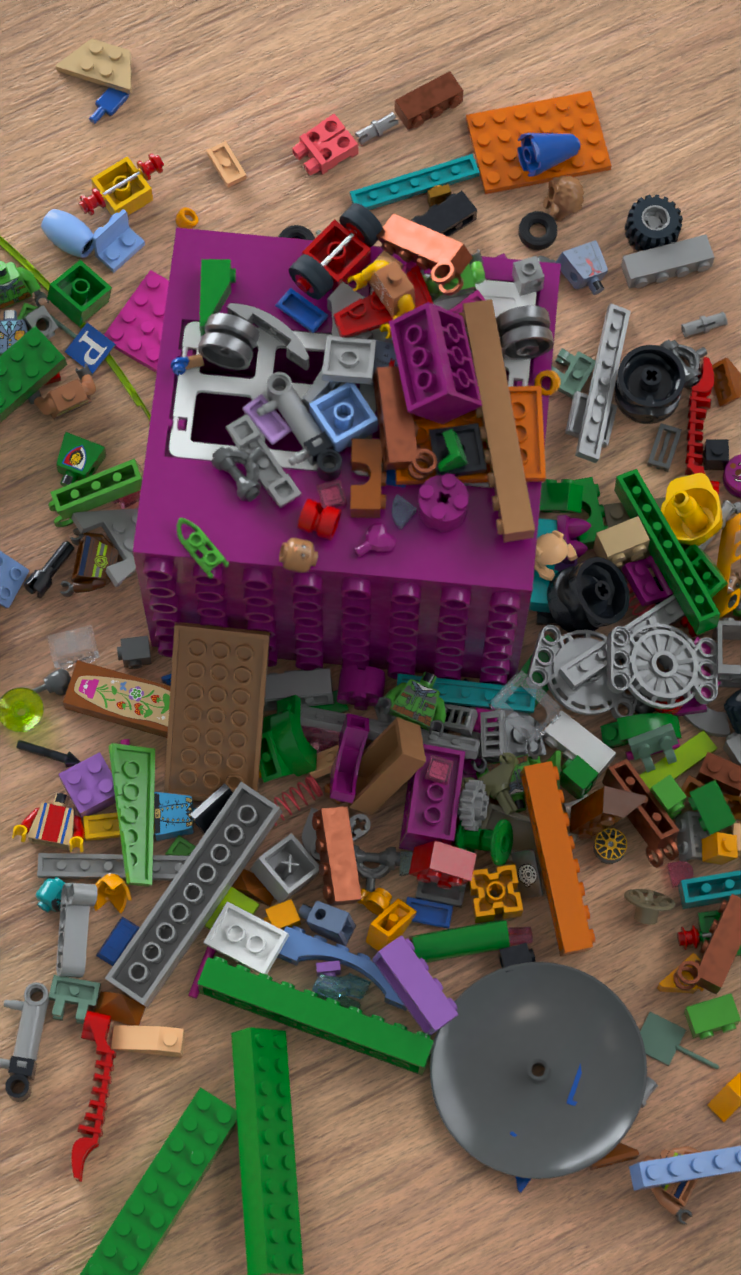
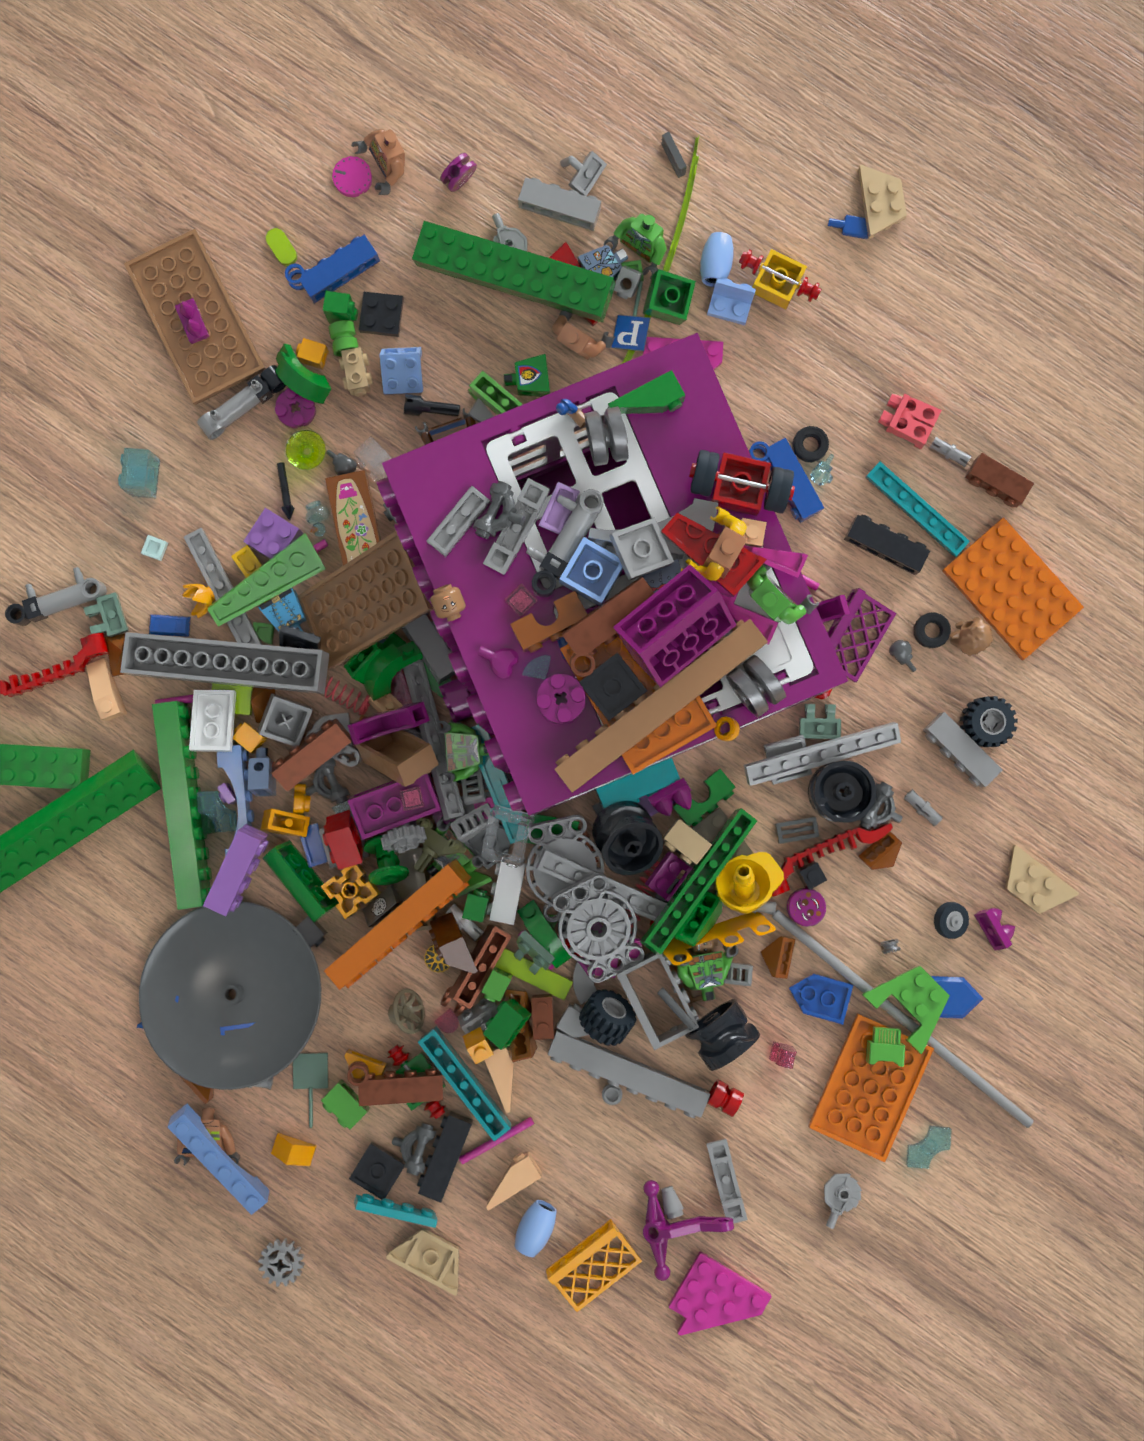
camera: 65 degrees right, 15 degrees up
(29, 914) = (154, 548): none -> light aqua tile
(50, 894) = (176, 556): teal head -> none
(53, 826) = (227, 527): torso -> none
(73, 928) = (152, 588): light grey beam -> none
(92, 734) = (315, 514): none -> clear light blue animal
(183, 222) = (780, 342): light orange piece -> none
(196, 542) = (415, 511): bright green piece -> none
(226, 164) = (849, 349): light nougat plate -> none
(227, 511) = (458, 521): none -> light grey tile
(273, 326) = (644, 441): light grey slope -> none
(302, 310) = (676, 482): blue tile -> none
(319, 519) = (489, 603): red wheel -> none
(426, 249) = (782, 561): hinge -> none
(438, 194) = (917, 533): pearl gold plate -> none
(457, 456) = (606, 685): green tile -> none
(520, 935) = (331, 924): clear pink tile -> none
(528, 275) = (816, 659): light grey brick -> none
(545, 150) = (1004, 600): blue cone -> none
(551, 550) = (645, 789): light nougat helmet -> none
(561, 497) = (701, 769): green brick -> none
(584, 266) = (918, 685): sand blue torso -> none

